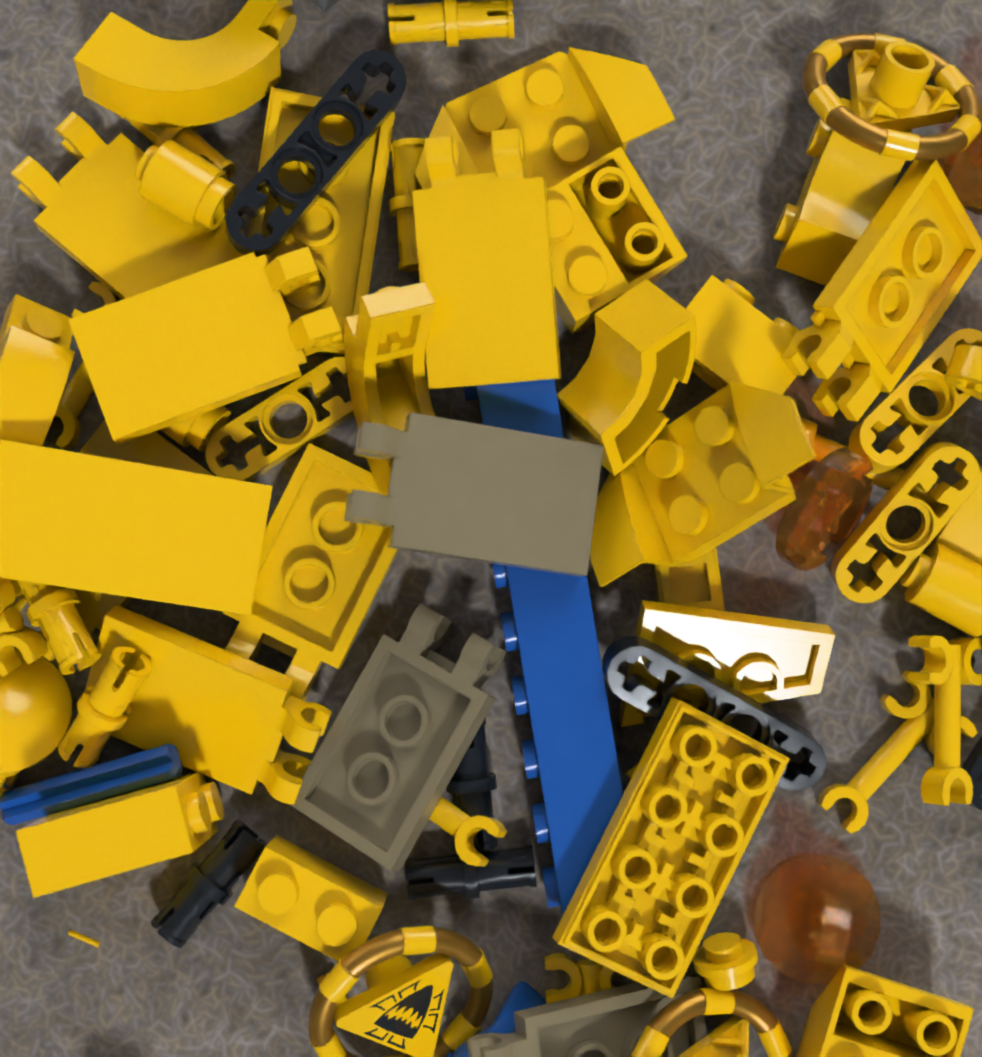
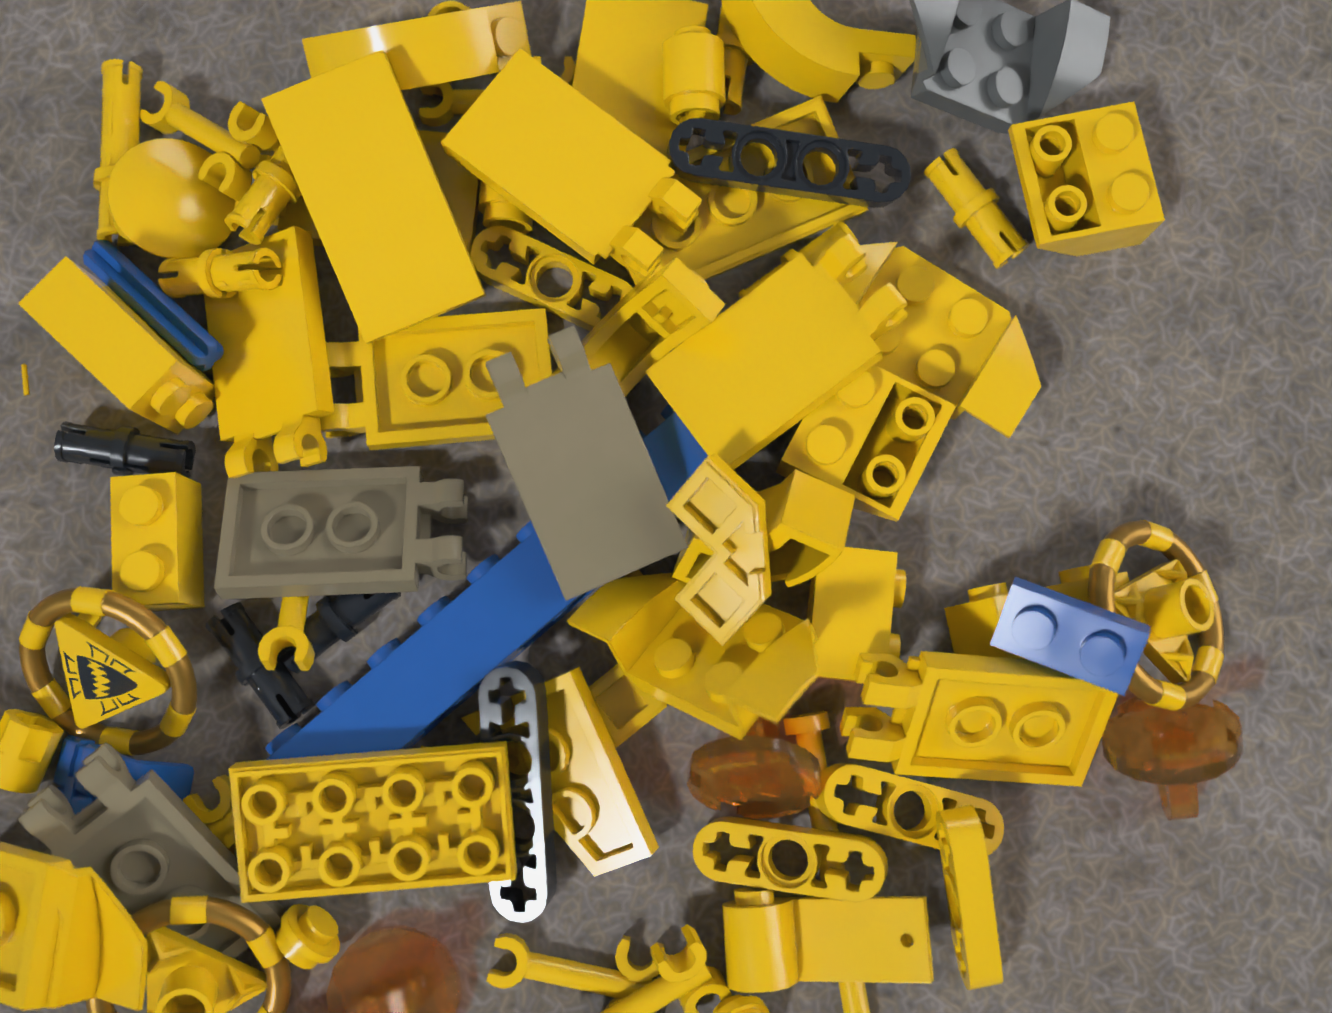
camera: 60 degrees right, 5 degrees down
(614, 394) = (733, 525): none -> yellow tile
(875, 175) = (1070, 636): none -> plate

